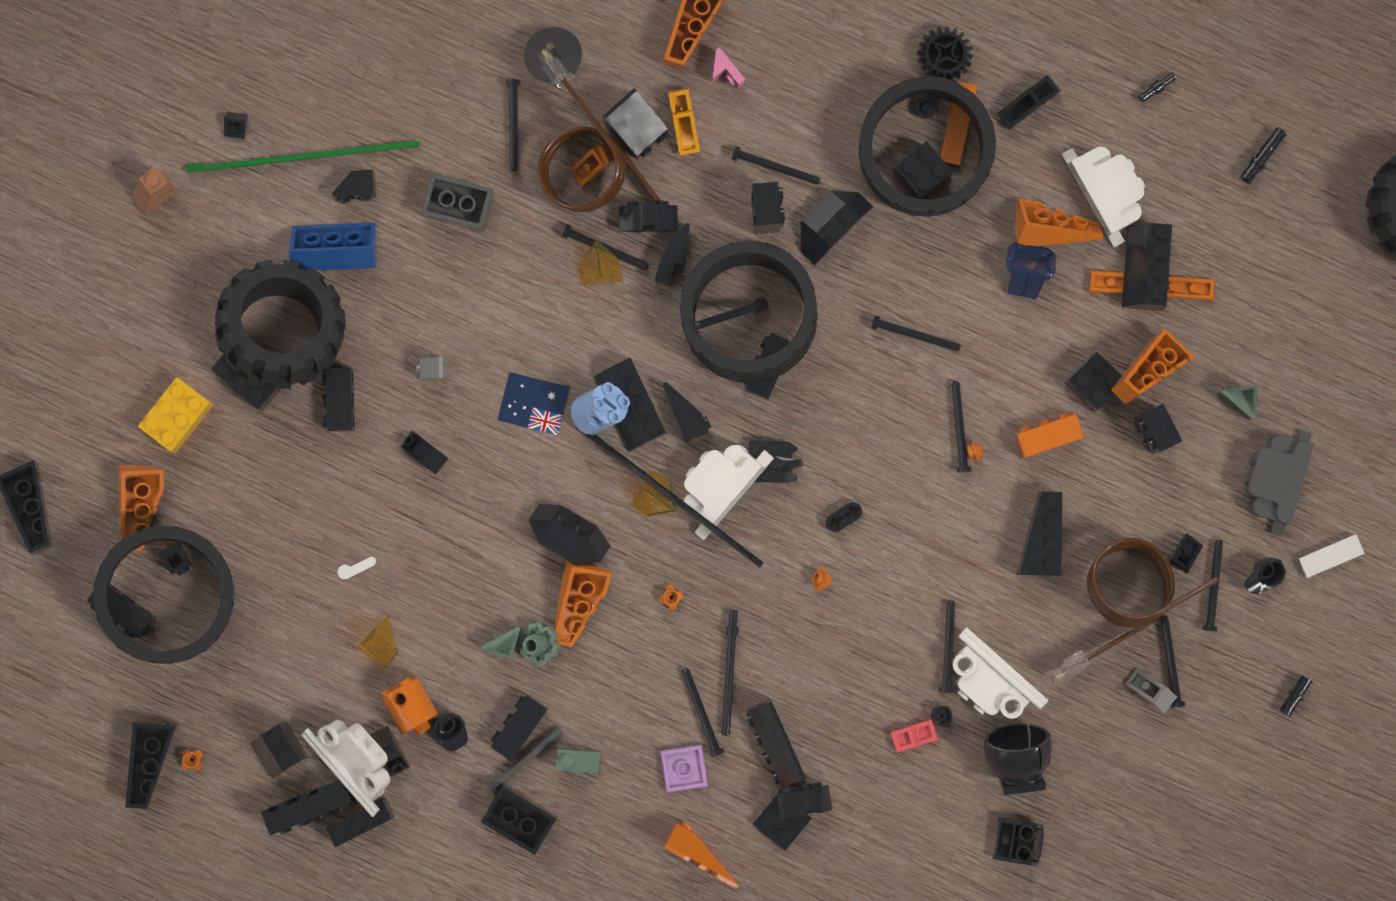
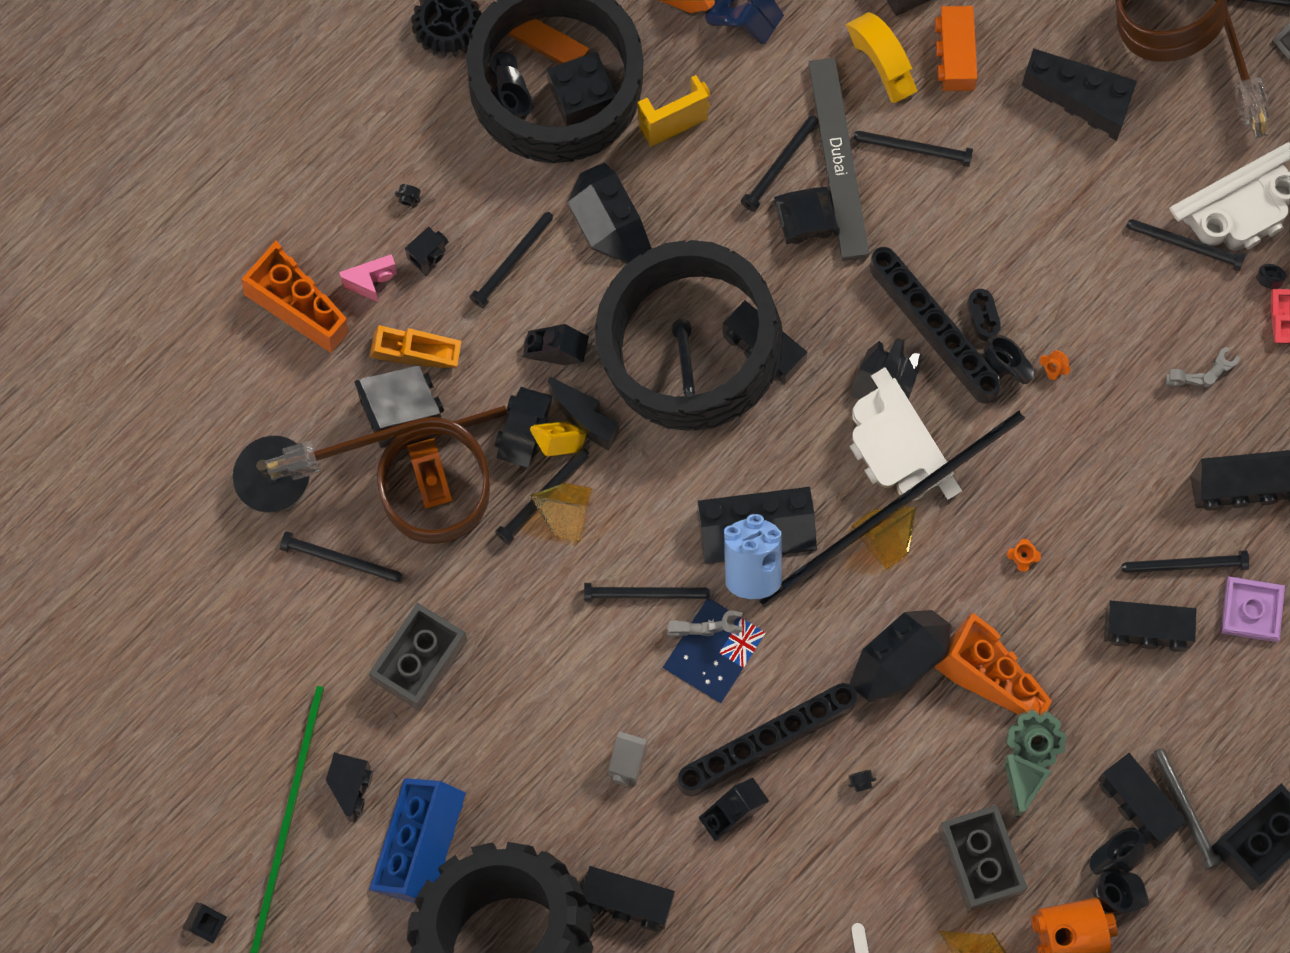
camera: 65 degrees left, 15 degrees down
(441, 630) = (982, 858): none -> dark grey brick
(470, 454) = (774, 727): none -> black beam
(472, 532) = (861, 780): none -> black plate
(478, 723) = (1122, 850): none -> black piece
(545, 304) = (645, 592): none -> black bar
(549, 406) = (681, 628): none -> light grey piece
(578, 760) = (1206, 740): sand green slope -> none
(646, 699) = (1150, 625): none -> black brick
(647, 244) = (558, 438): none -> yellow slope
(688, 417) = (798, 459): black slope -> none
(717, 219) = (556, 345): none -> black slope
(731, 630) = (1091, 492): black bar -> none
(760, 103) = (426, 249): none -> black brick
(766, 208) = (564, 274): black brick -> none
(799, 74) = (408, 195): none -> black plate
(813, 543) = (1007, 358): none -> black piece
(825, 473) = (935, 336): none -> black beam
(846, 691) = (1178, 377): none -> light grey piece
(879, 366) = (806, 215): none -> black slope
(902, 121) = (512, 91): none -> black piece
(920, 247) = (675, 117): none -> yellow panel
(932, 375) = (838, 159): none -> dark grey tile
(975, 451) = (950, 136): orange plate -> none
(1023, 382) = (883, 48): none -> yellow arch

